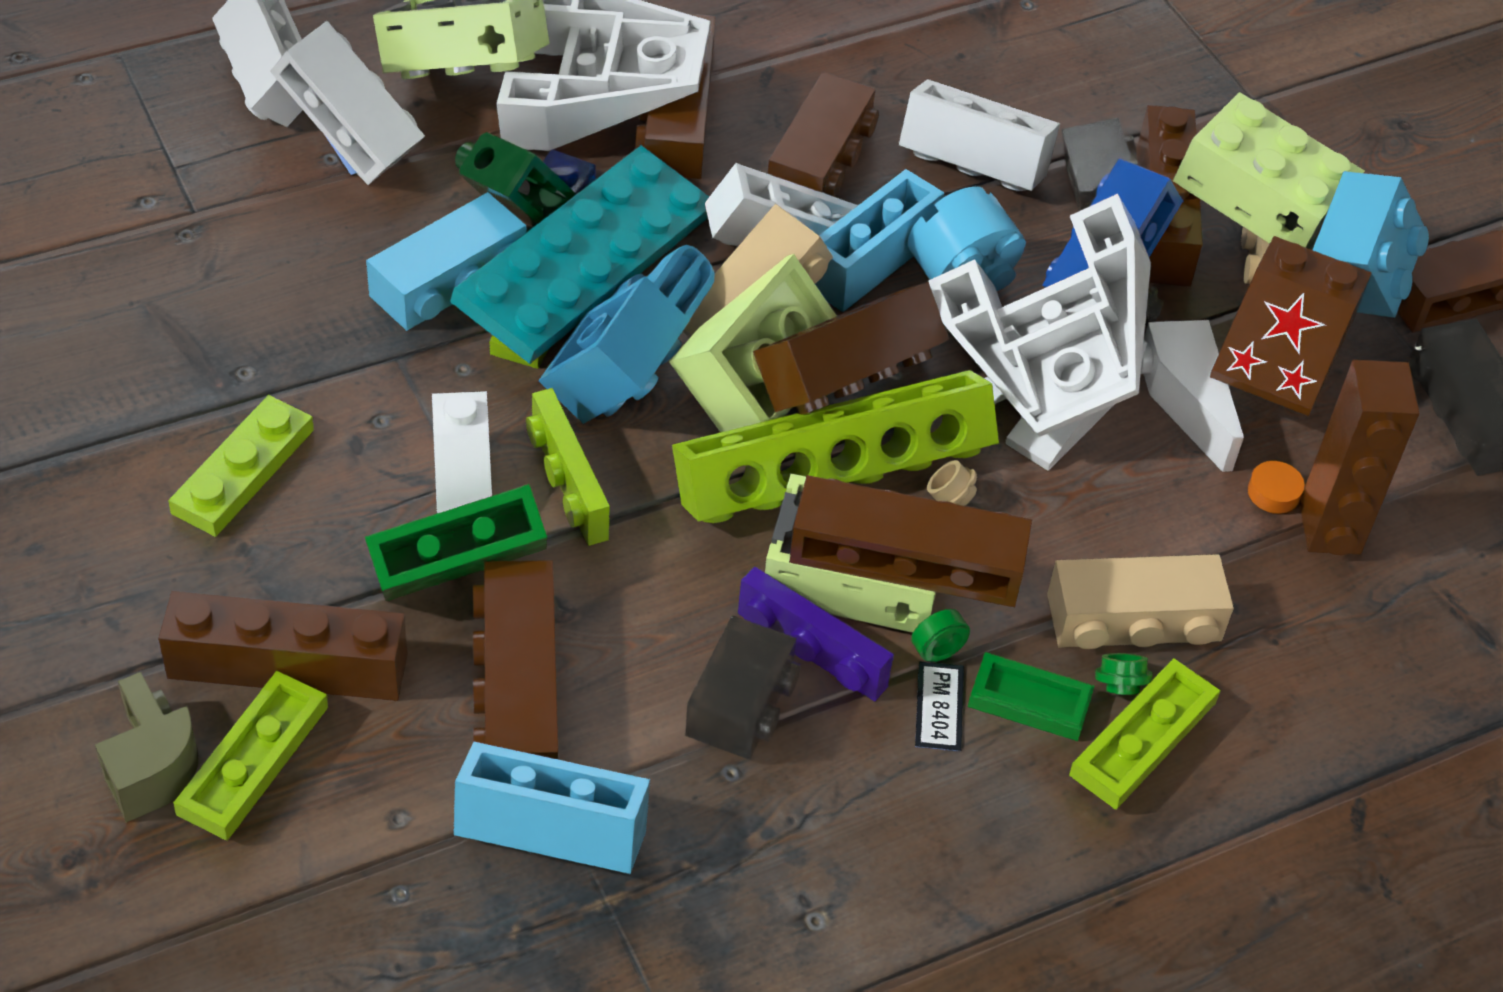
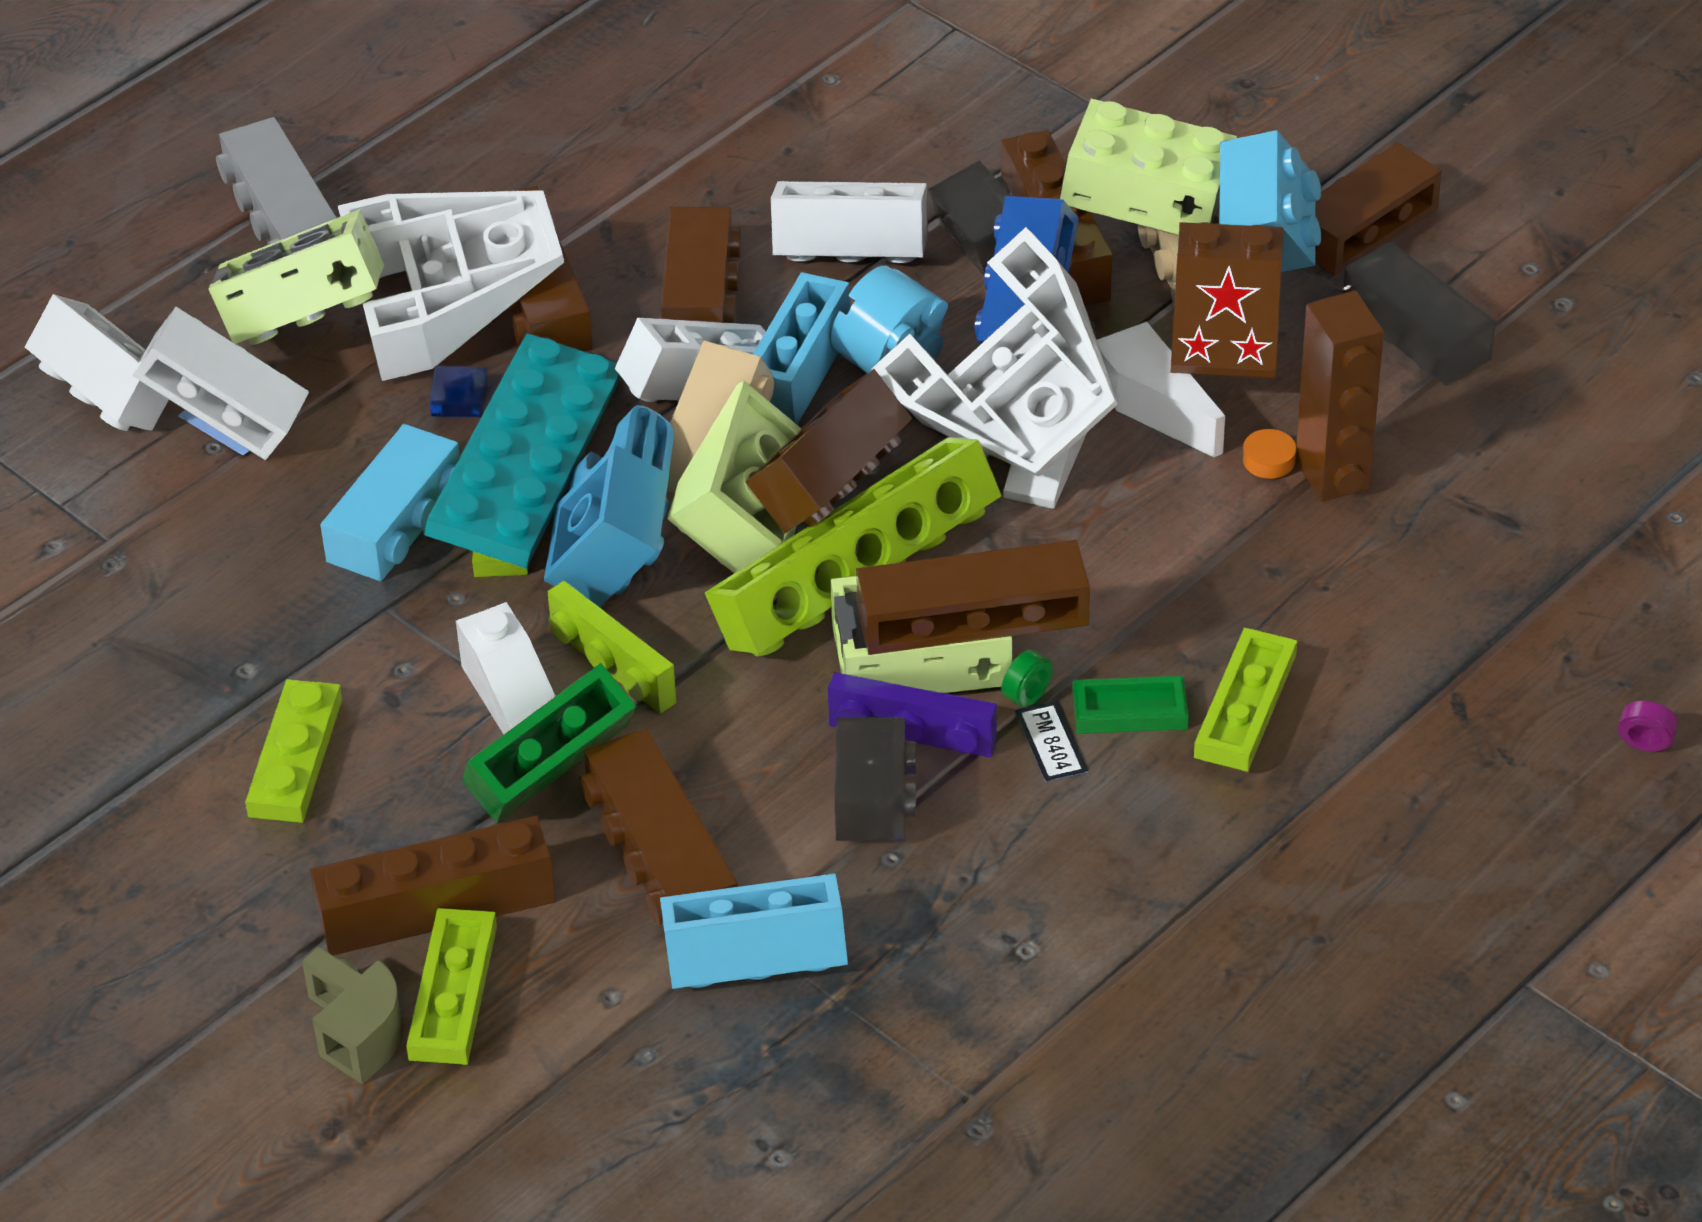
camera: 15 degrees left, 5 degrees down
(501, 169) = (422, 399): dark green torso -> none
(953, 483) = (975, 539): tan plate -> none
(1123, 673) = (1204, 656): green plate -> none
(1139, 601) = (1191, 590): tan brick -> none

